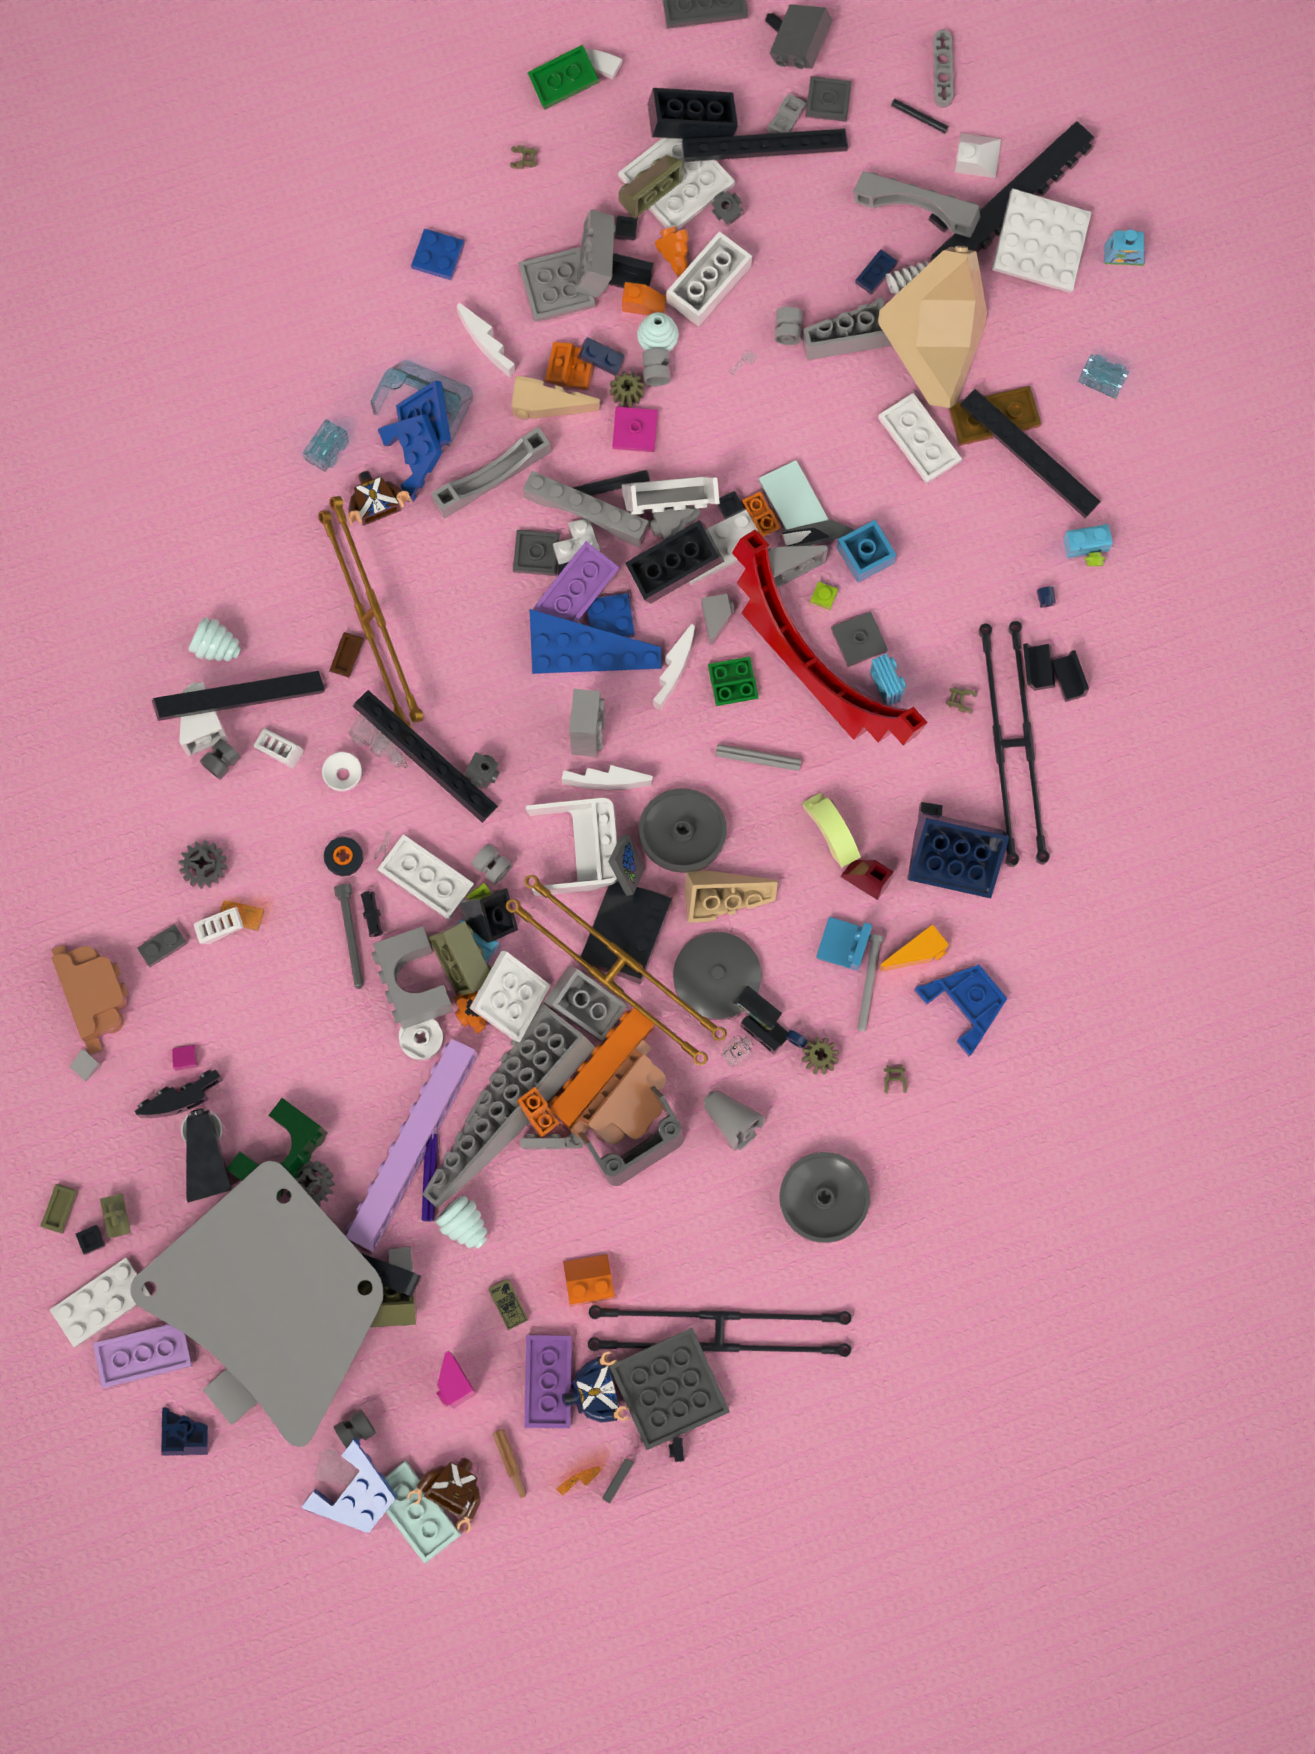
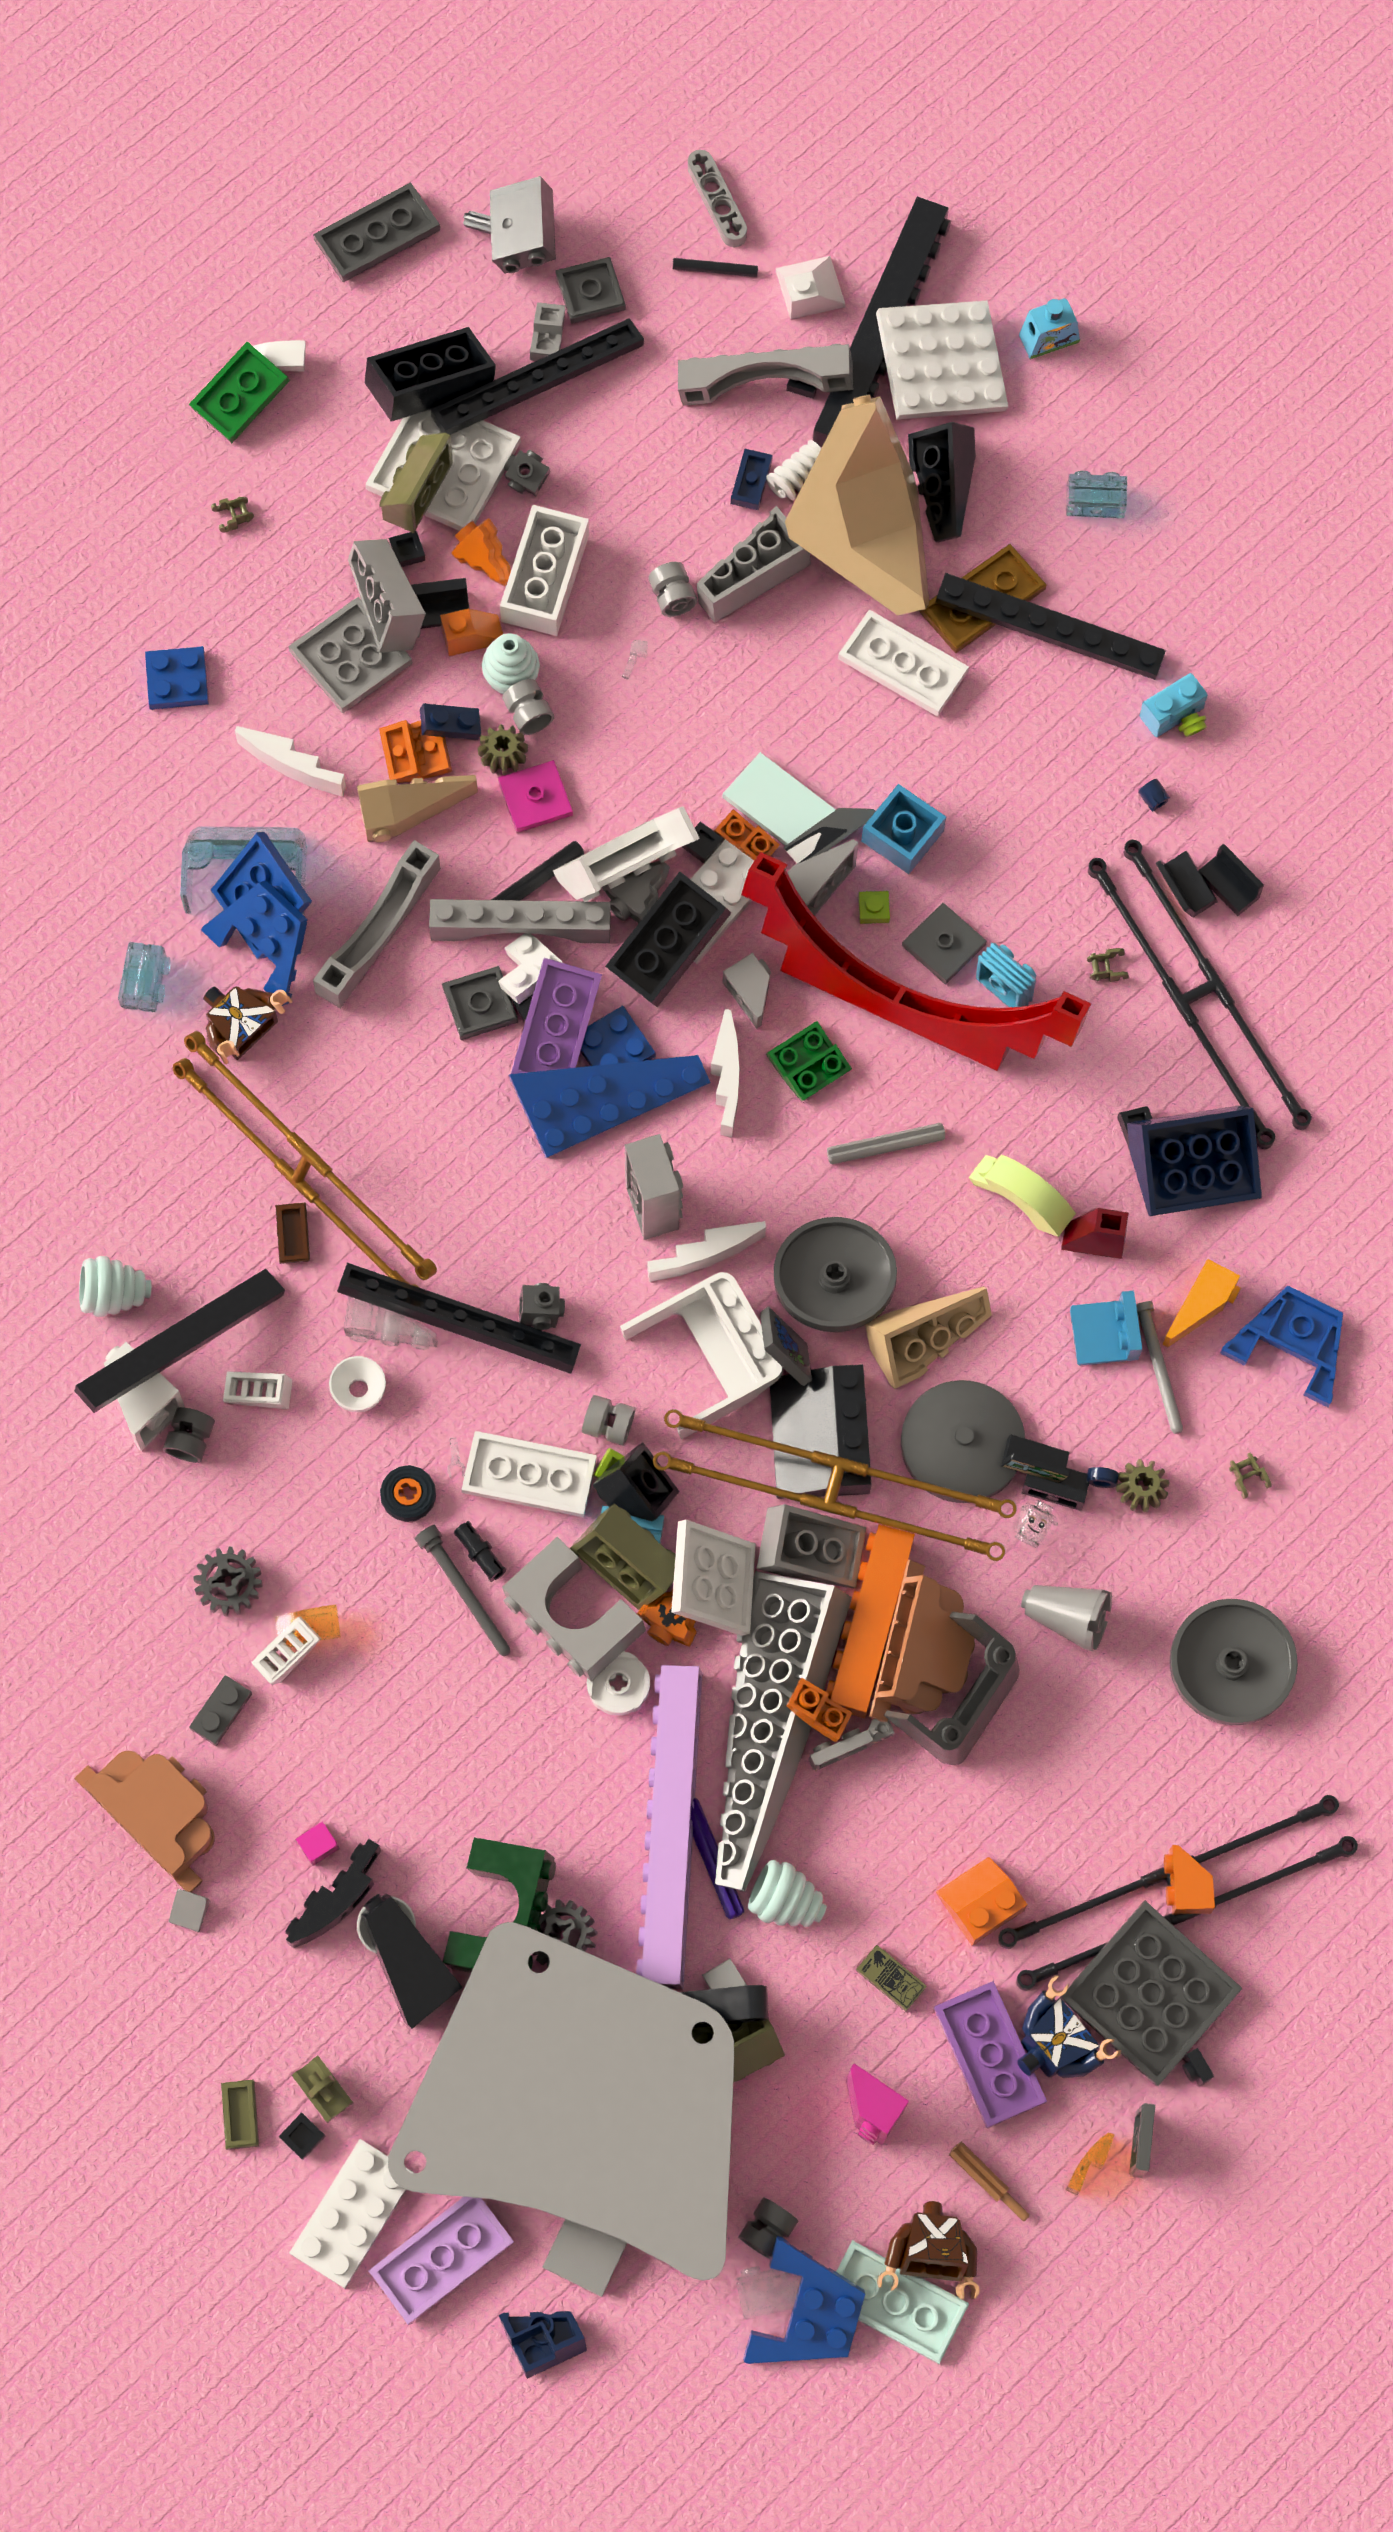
camera: 25 degrees left, 5 degrees down
(727, 1329) = (1190, 1884): none -> orange slope
(1010, 313) = (944, 468): none -> black wedge

